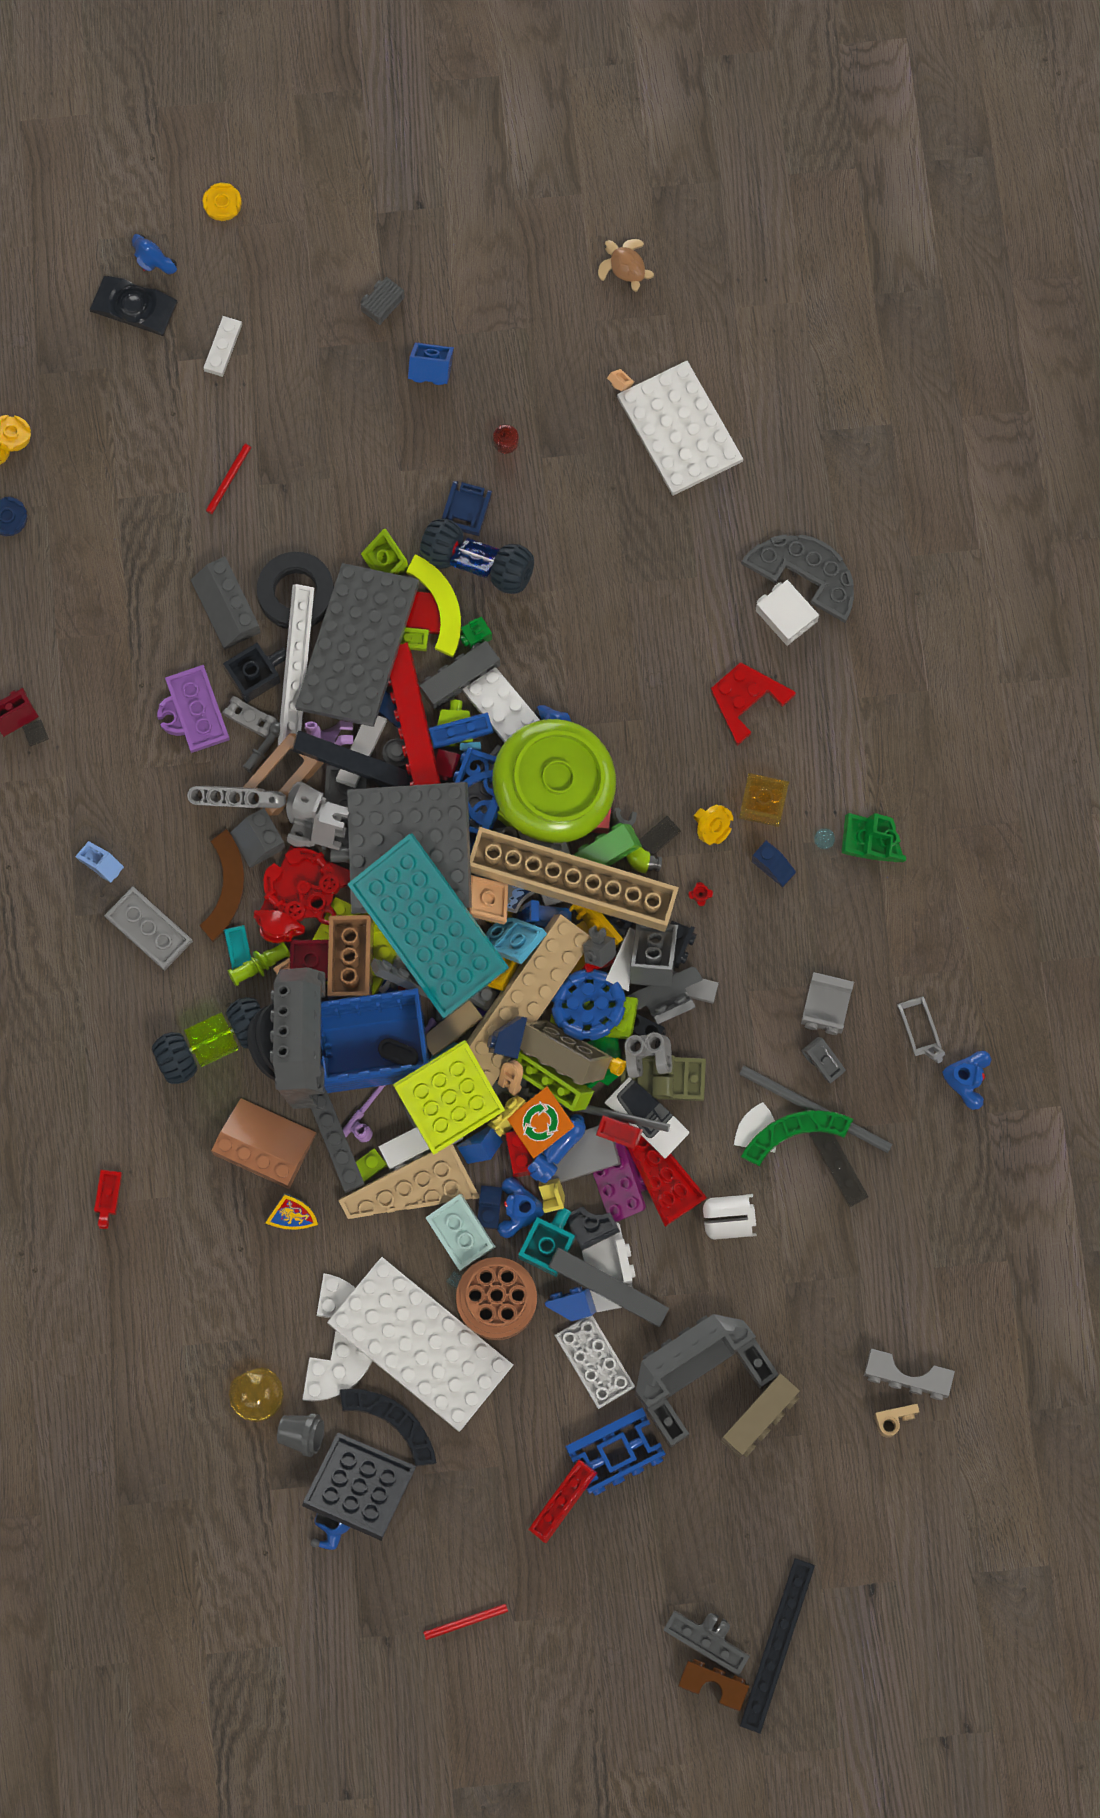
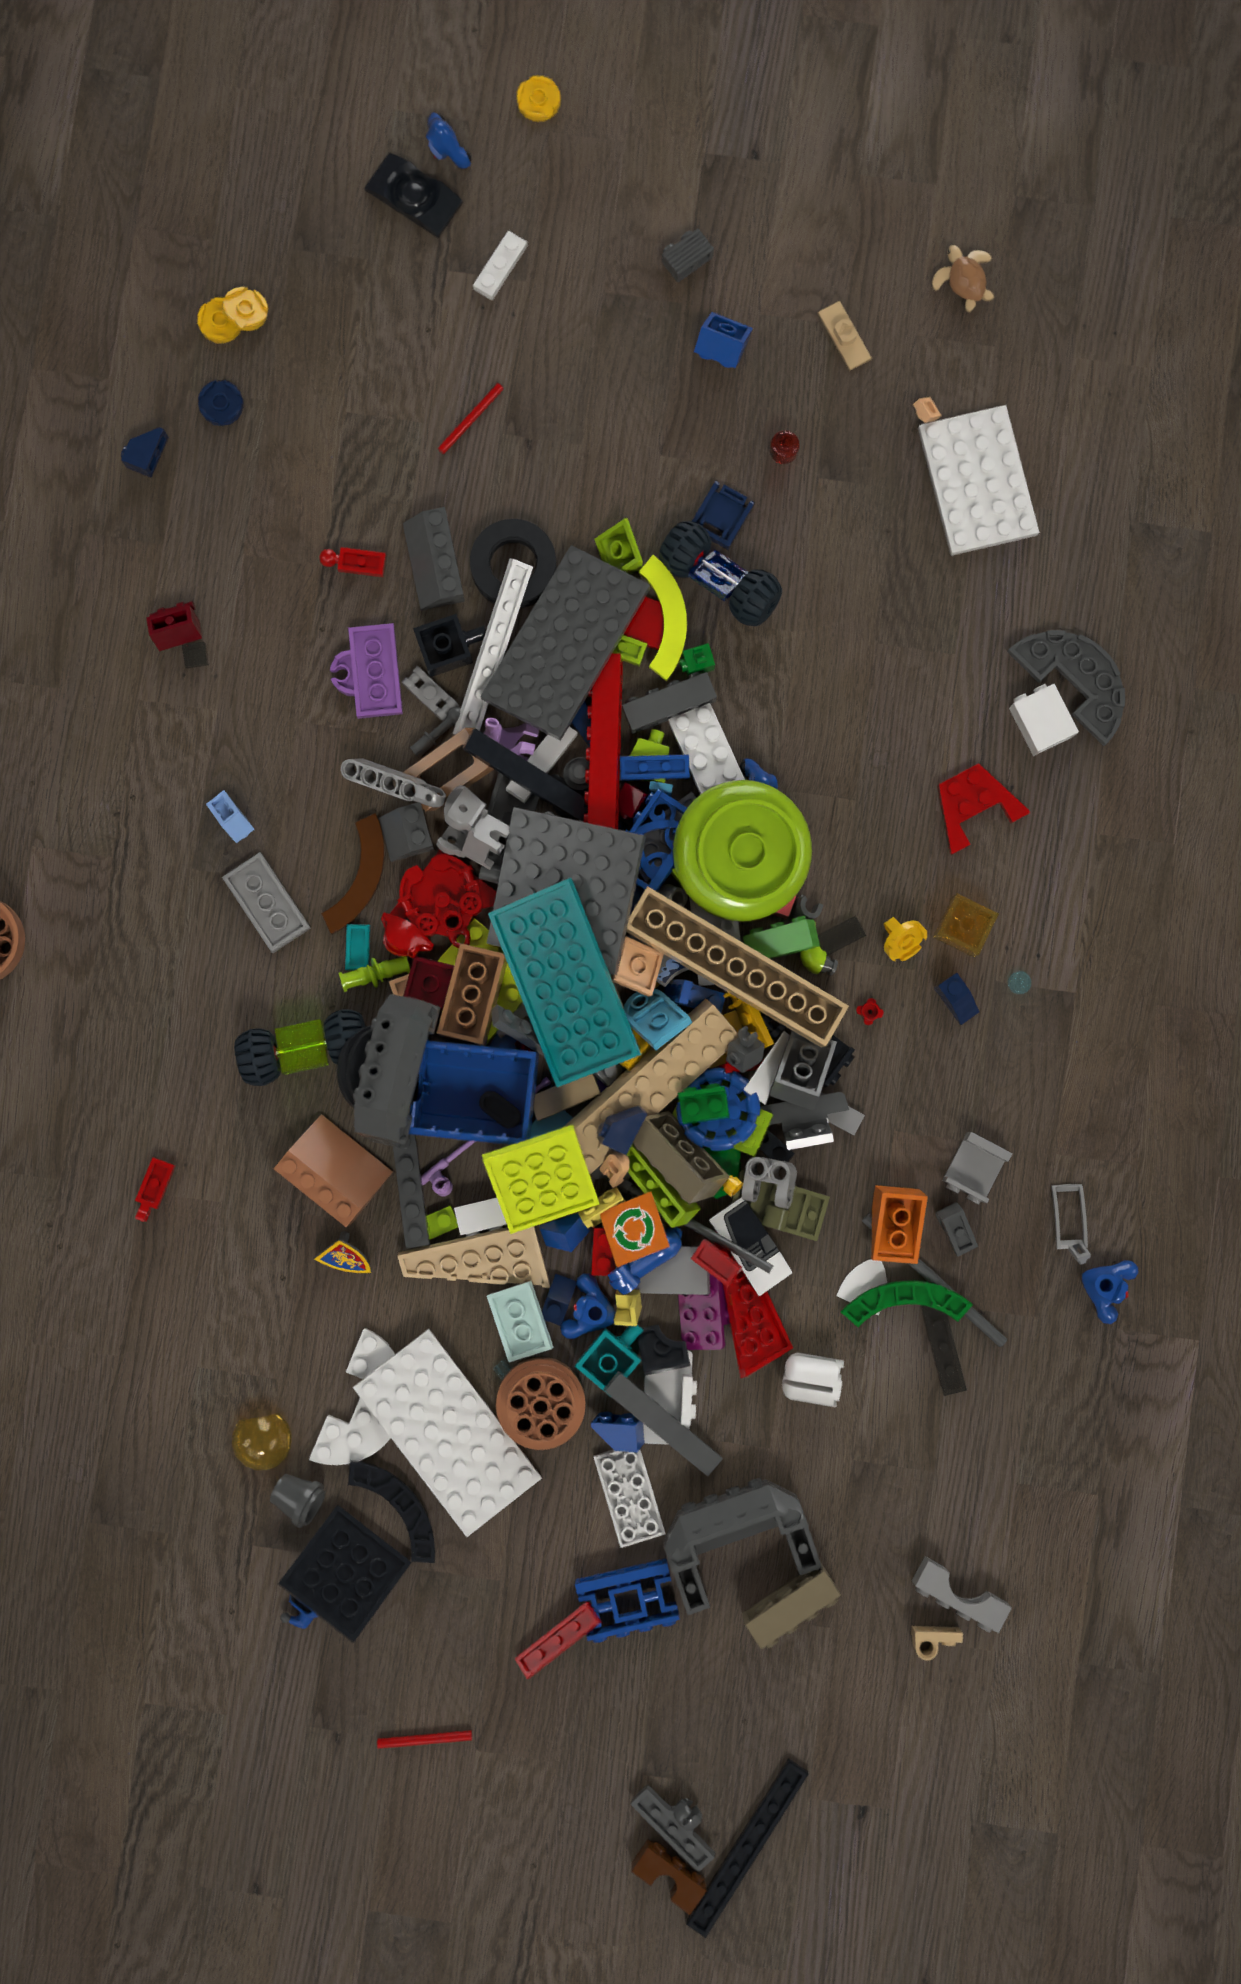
camera: 10 degrees right, 10 degrees up
(157, 621) = (355, 561): none -> red plate
(534, 335) = (844, 335): none -> tan piece
(574, 1001) = (703, 1104): none -> green bracket
(770, 1067) = (897, 1224): none -> orange slope
(872, 838) = (1071, 995): green slope -> none

